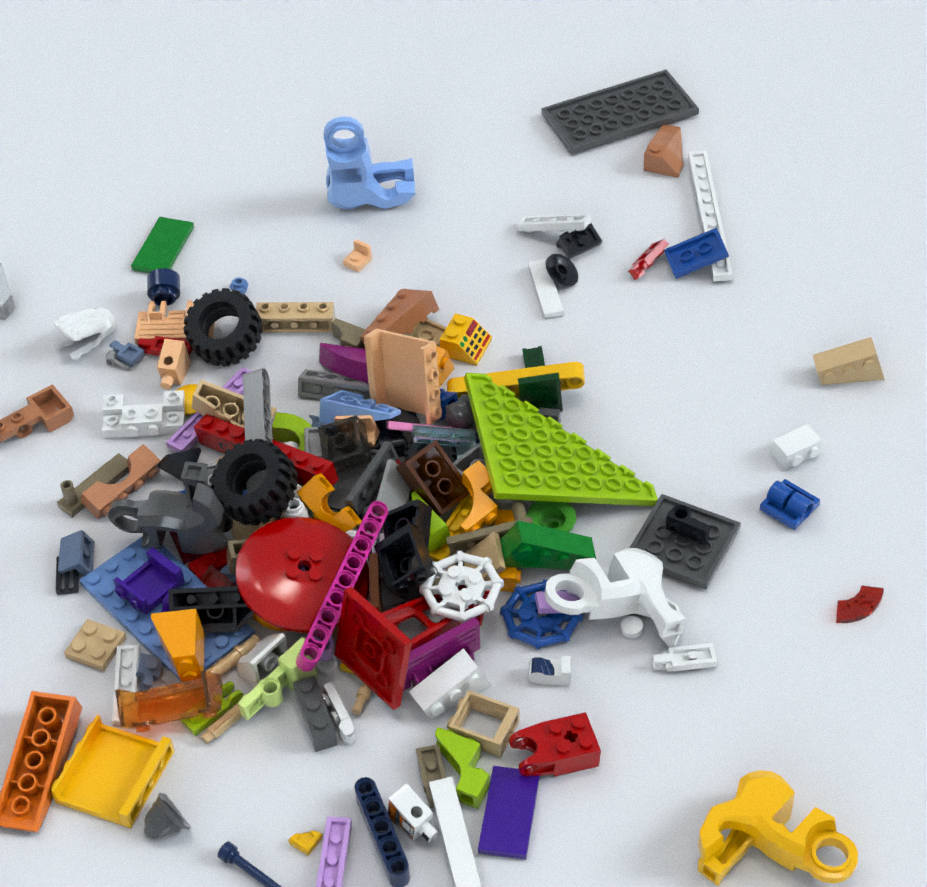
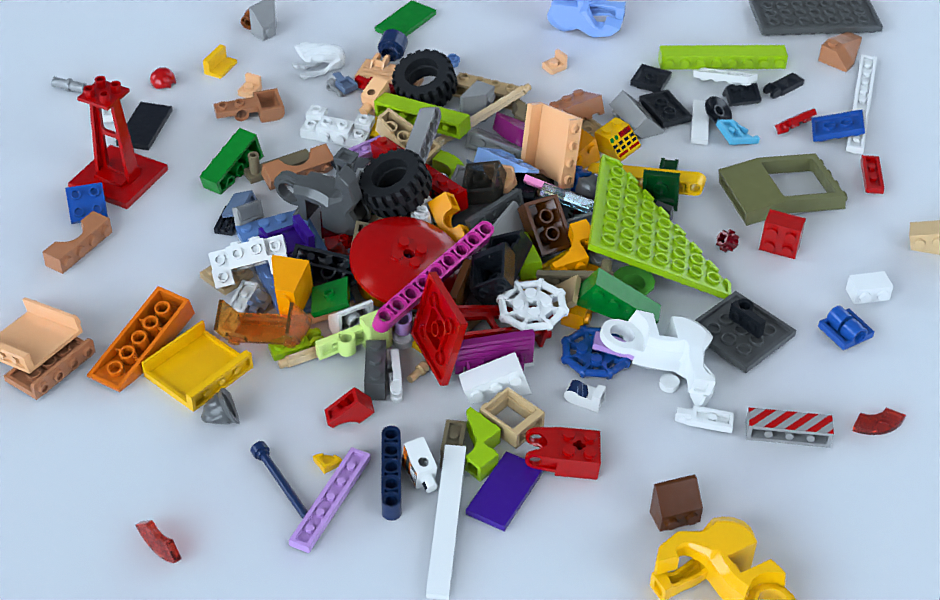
camera: 15 degrees right, 5 degrees down
(18, 388) = (252, 84): none -> light nougat bracket
(40, 498) = (230, 161): none -> green wedge
(89, 559) = (248, 212): none -> light grey tile
(113, 619) = (243, 256): none -> white bracket
(229, 371) = (451, 124): none -> lime brick
(231, 640) = (330, 297): none -> green plate
(293, 338) = (477, 98): none -> light grey slope
(307, 349) = (490, 110): none -> tan piece
(307, 769) = (351, 407): none -> red arch
(472, 247) = (650, 78): none -> black plate
(474, 302) = (635, 115): none -> light grey slope
(502, 282) = (665, 108): none -> black plate
(539, 197) = (722, 56): none -> lime brick
(589, 292) = (735, 133): none -> medium azure wing
(619, 214) = (784, 85): none -> black hinge
(630, 433) = (727, 240): none -> dark red gear
(642, 367) = (755, 192): none -> olive window
(686, 409) = (782, 234): none -> red brick
(694, 771) = (676, 503): none -> reddish brown slope
(751, 303) = (872, 174): none -> red plate
(773, 641) = (789, 427): none -> light grey brick

